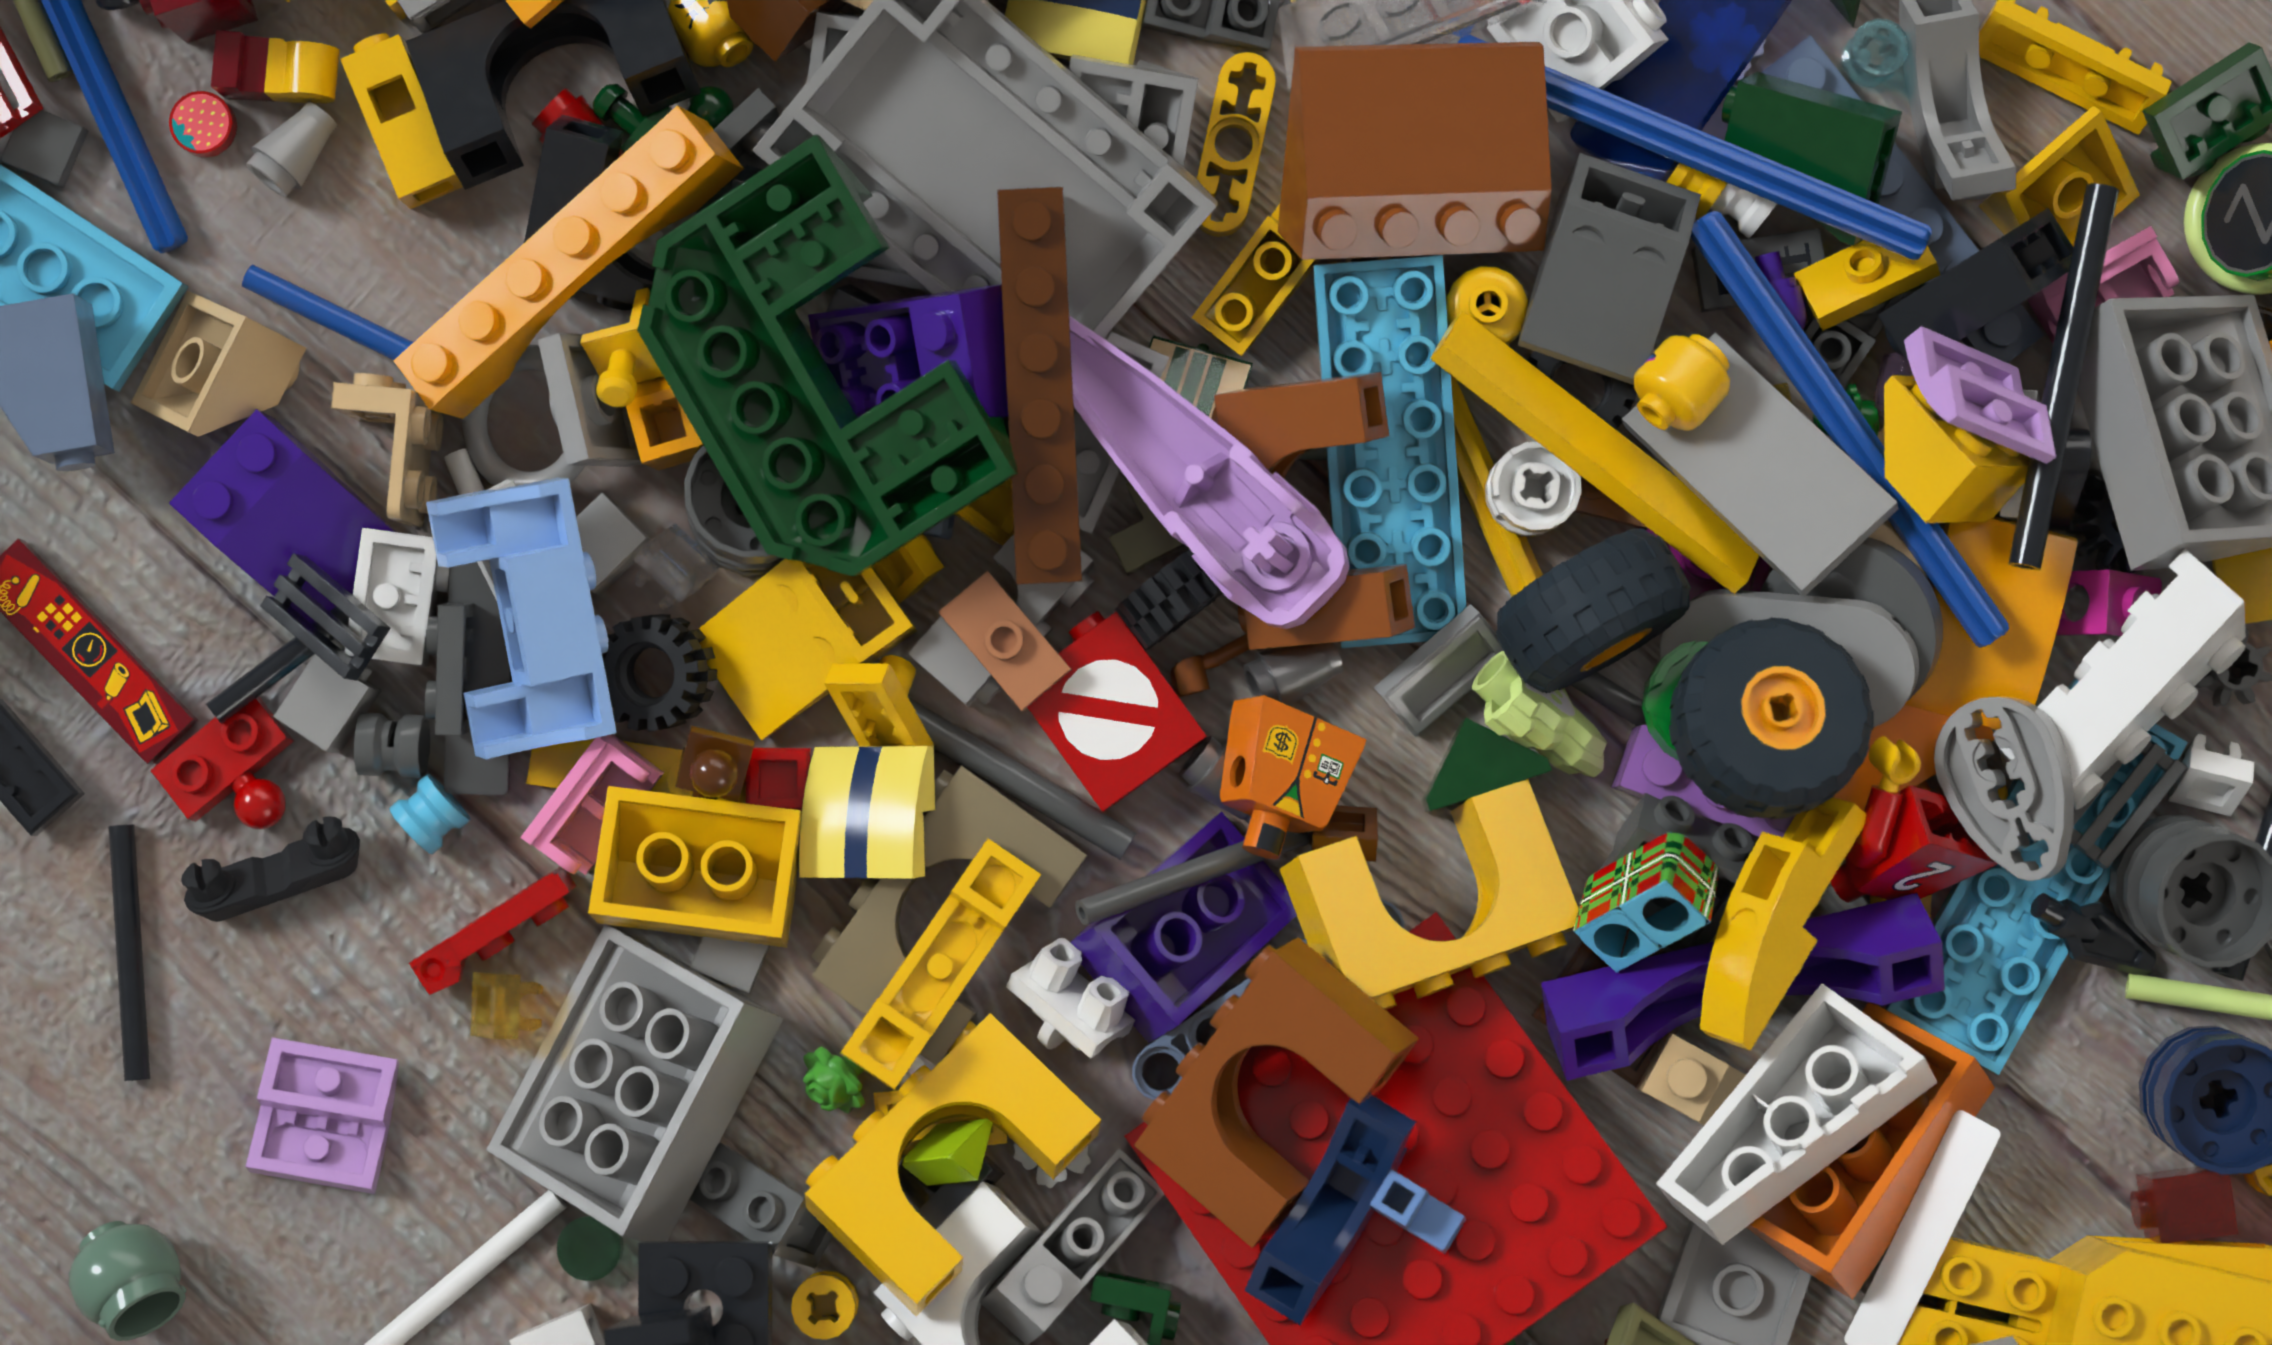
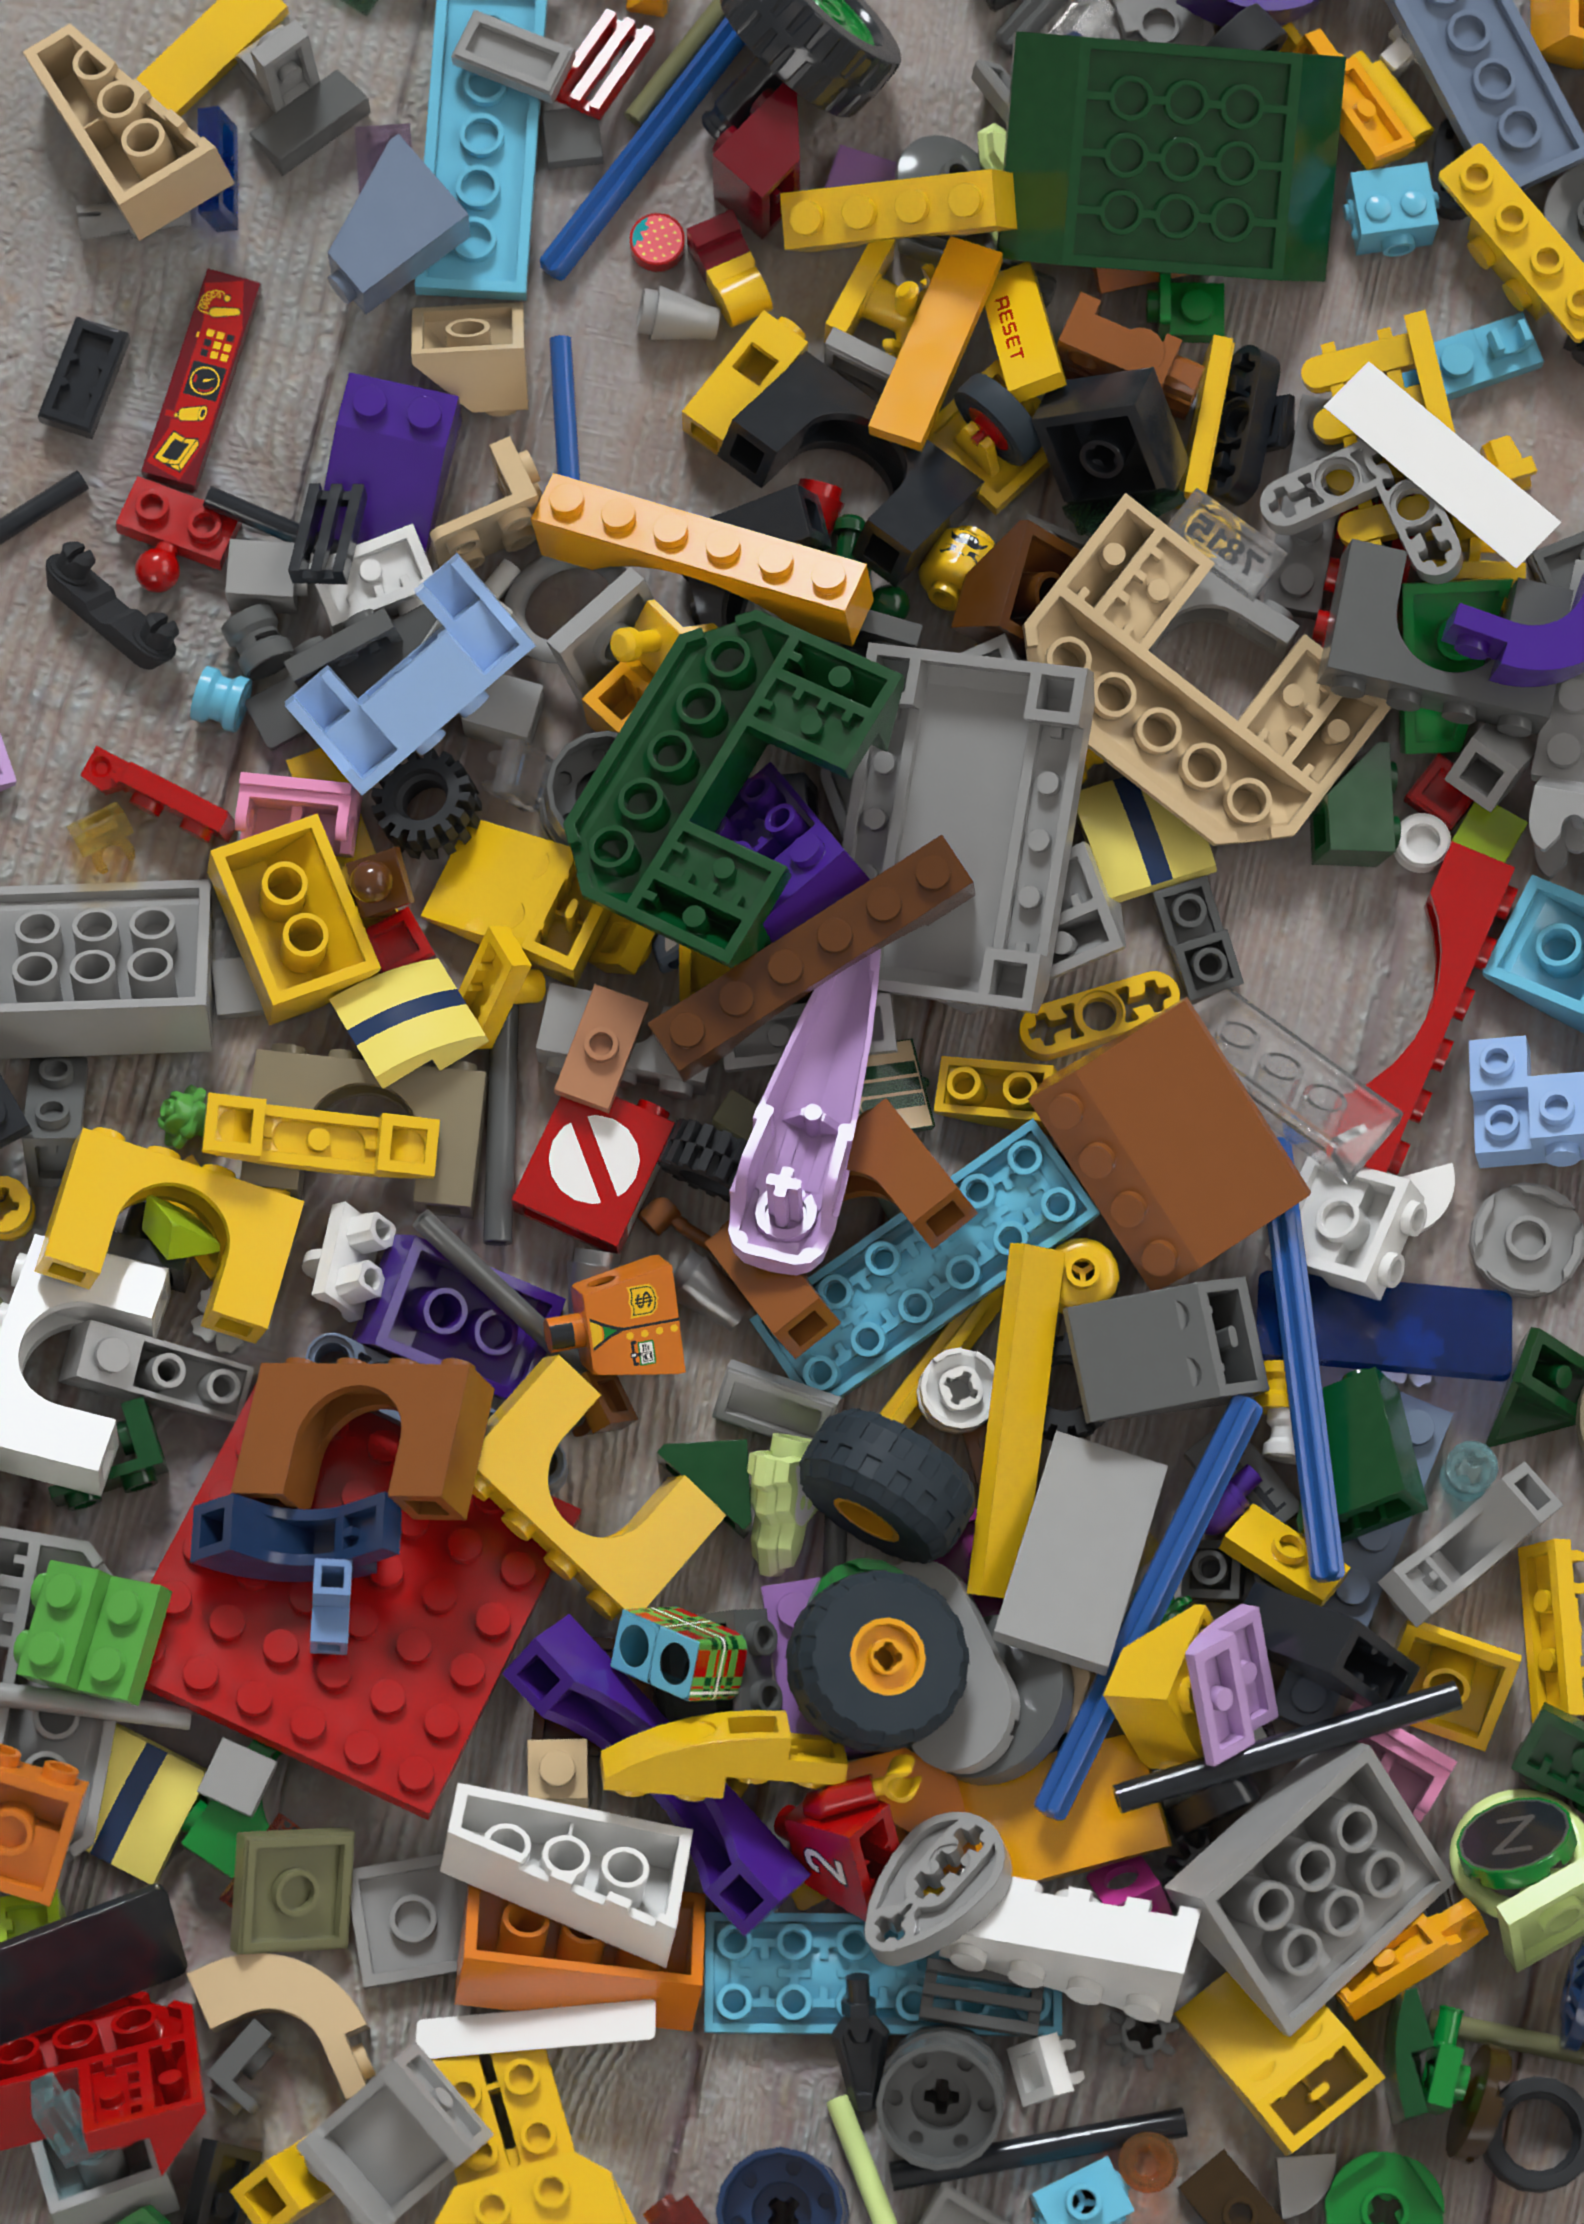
camera: 50 degrees right, 10 degrees down
(1682, 382) = (1107, 1452): yellow head -> none

